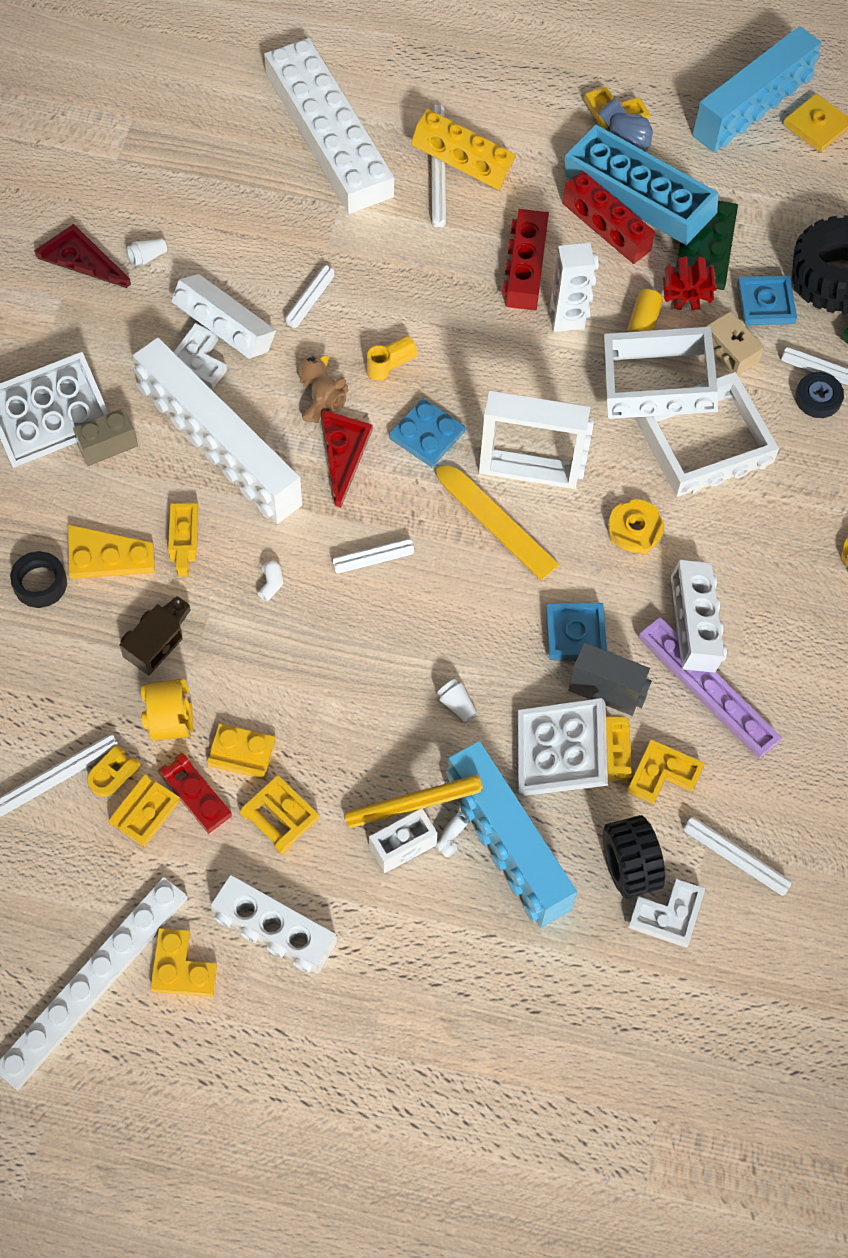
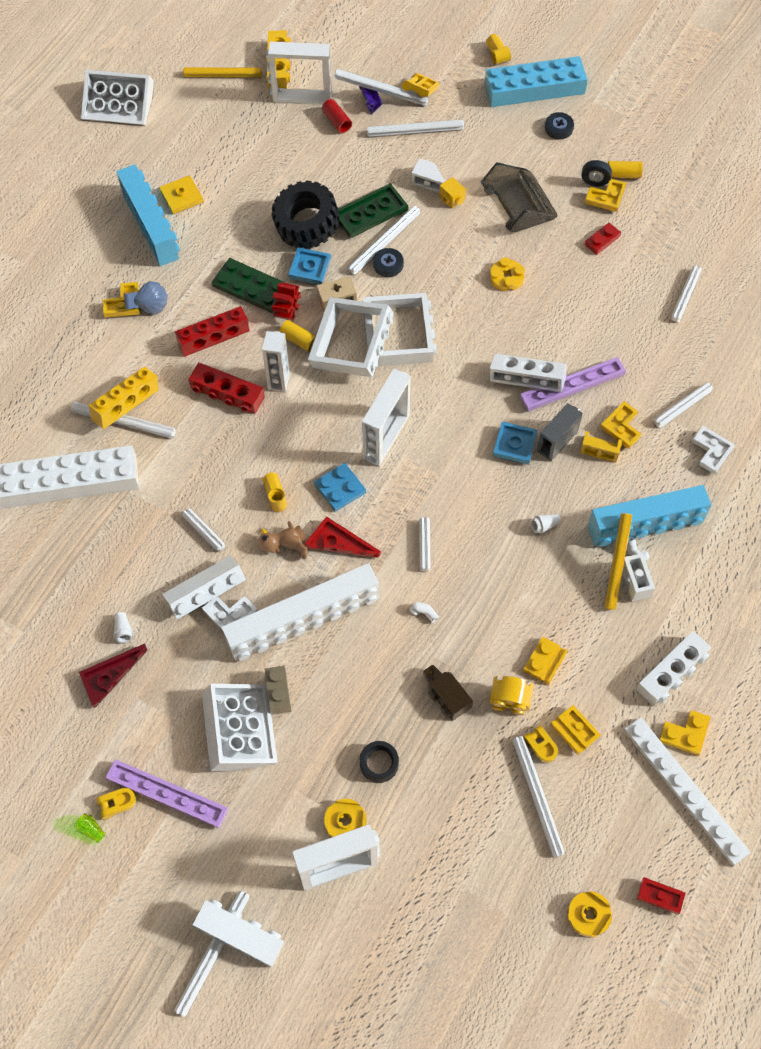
camera: 70 degrees left, 0 degrees up
(107, 554) = (370, 713): yellow wing -> none
(183, 535) = (373, 657): yellow hinge -> none
(195, 793) = (568, 695): red plate -> none
(286, 807) = (595, 641): yellow plate -> none
(496, 521) = (420, 465): yellow piece -> none
(562, 747) = (597, 471): white plate -> none
(633, 856) = (680, 452): black tyre -> none
(636, 540) = (447, 397): yellow plate -> none
(644, 184) = (198, 301): medium azure brick -> none

